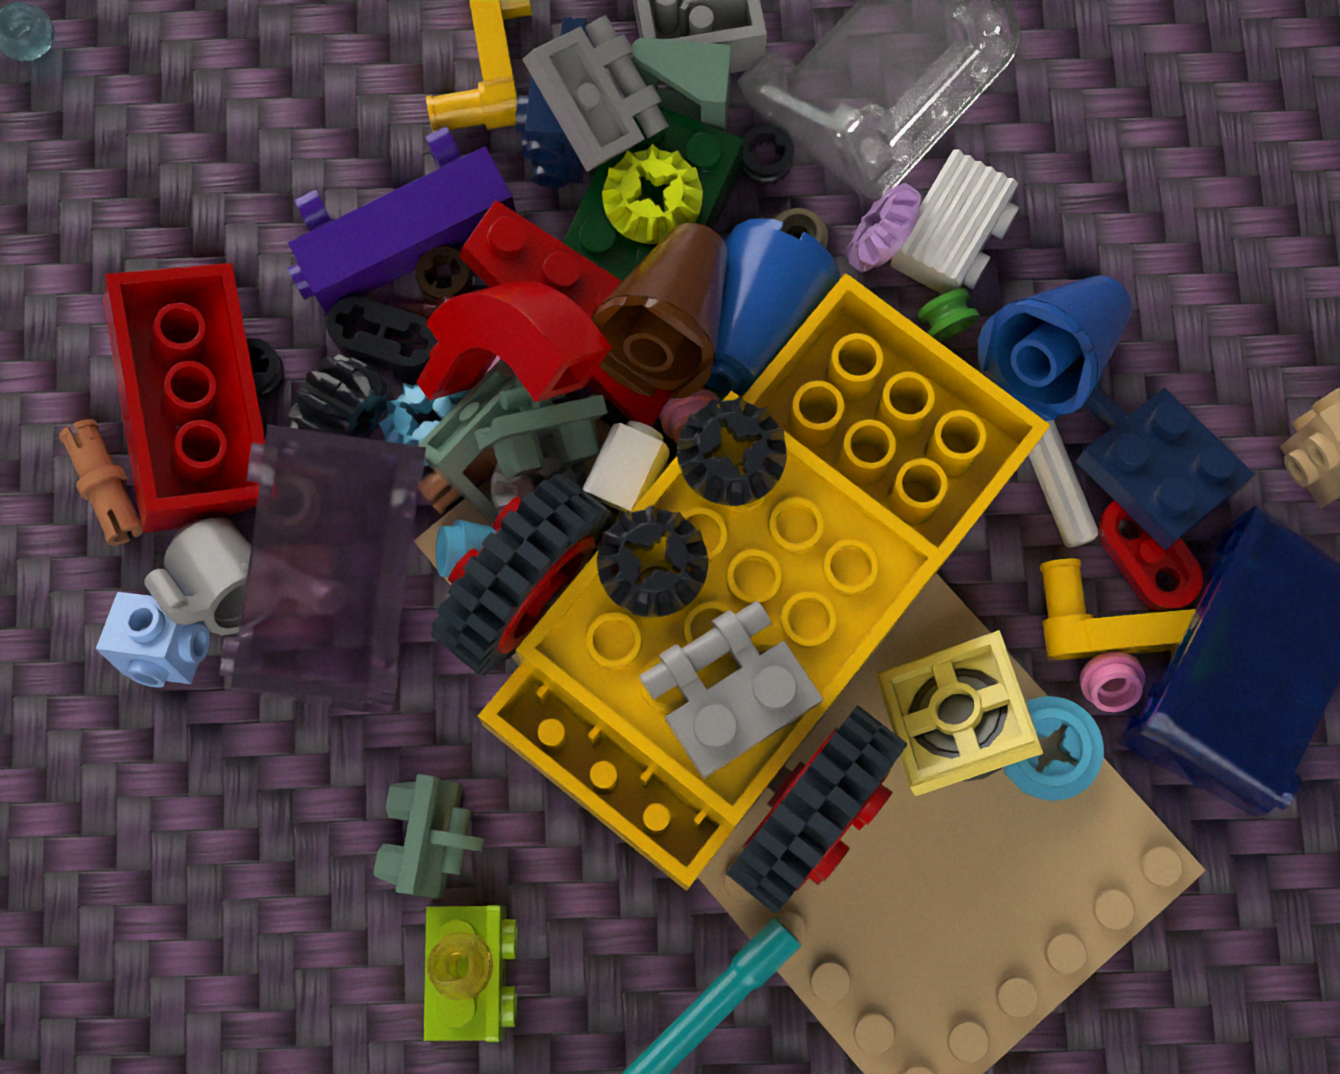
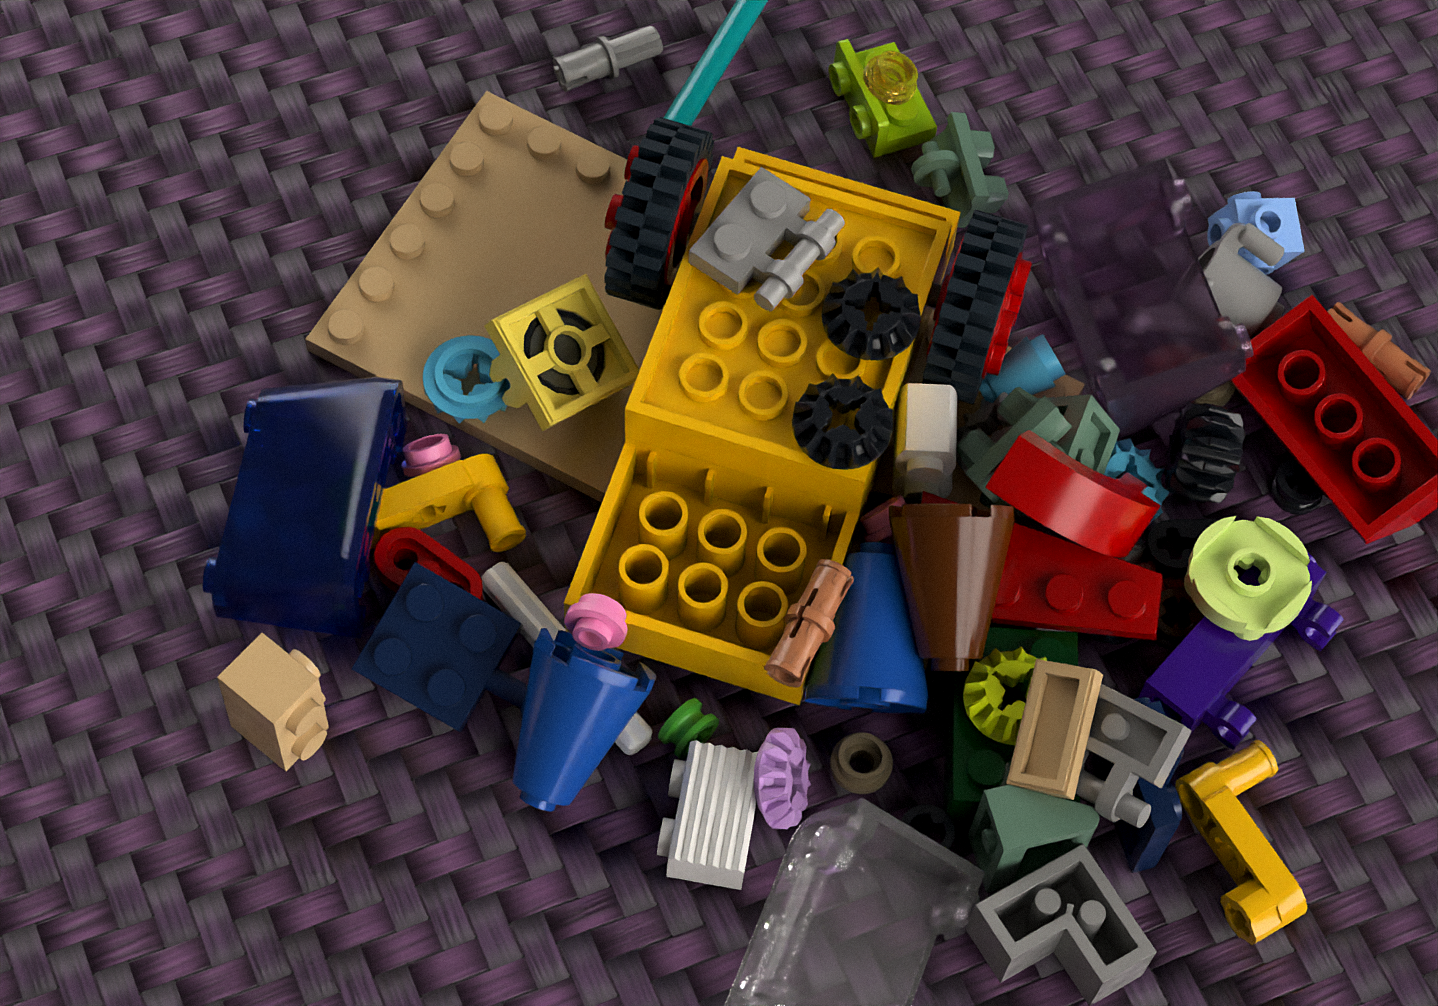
camera: 150 degrees right, 15 degrees down
(362, 282) = (1240, 607): none -> yellowish green plate
(640, 122) = (1055, 728): none -> tan tile
(827, 305) = (809, 623): none -> nougat pin
(1029, 383) = (597, 622): none -> bright pink plate

